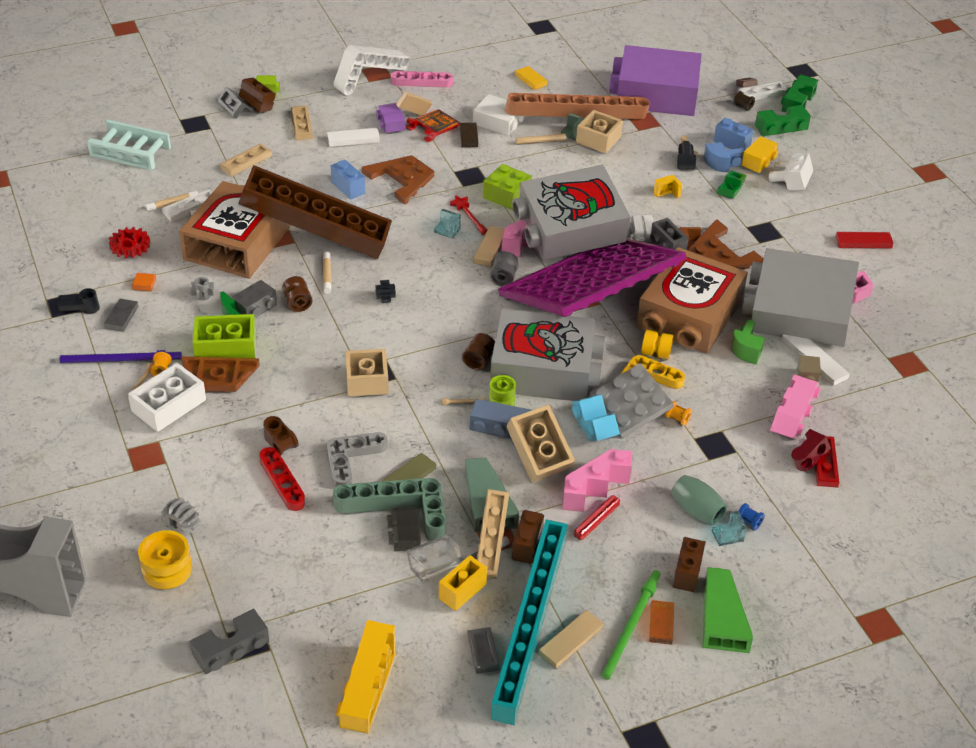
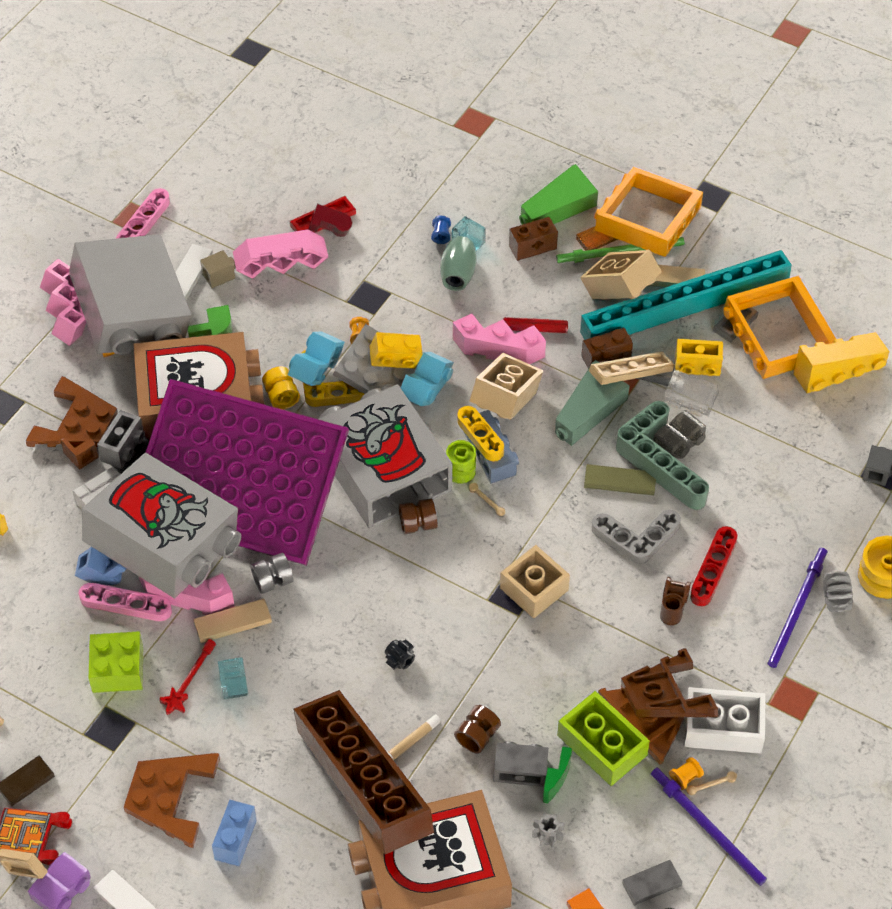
camera: 125 degrees left, 10 degrees up
(215, 527) = (814, 570): none -> dark purple bar
(220, 368) = (656, 694): none -> reddish brown wing
(431, 693) = (803, 302): none -> light orange window
(495, 400) = (480, 423): none -> yellow beam
(586, 574) = (621, 275): none -> tan brick
(622, 676) = (639, 235): none -> light orange window
(627, 398) = (395, 350): none -> yellow brick
(659, 360) = (321, 353): none -> medium azure brick
(913, 378) = (147, 222): none -> bright pink beam

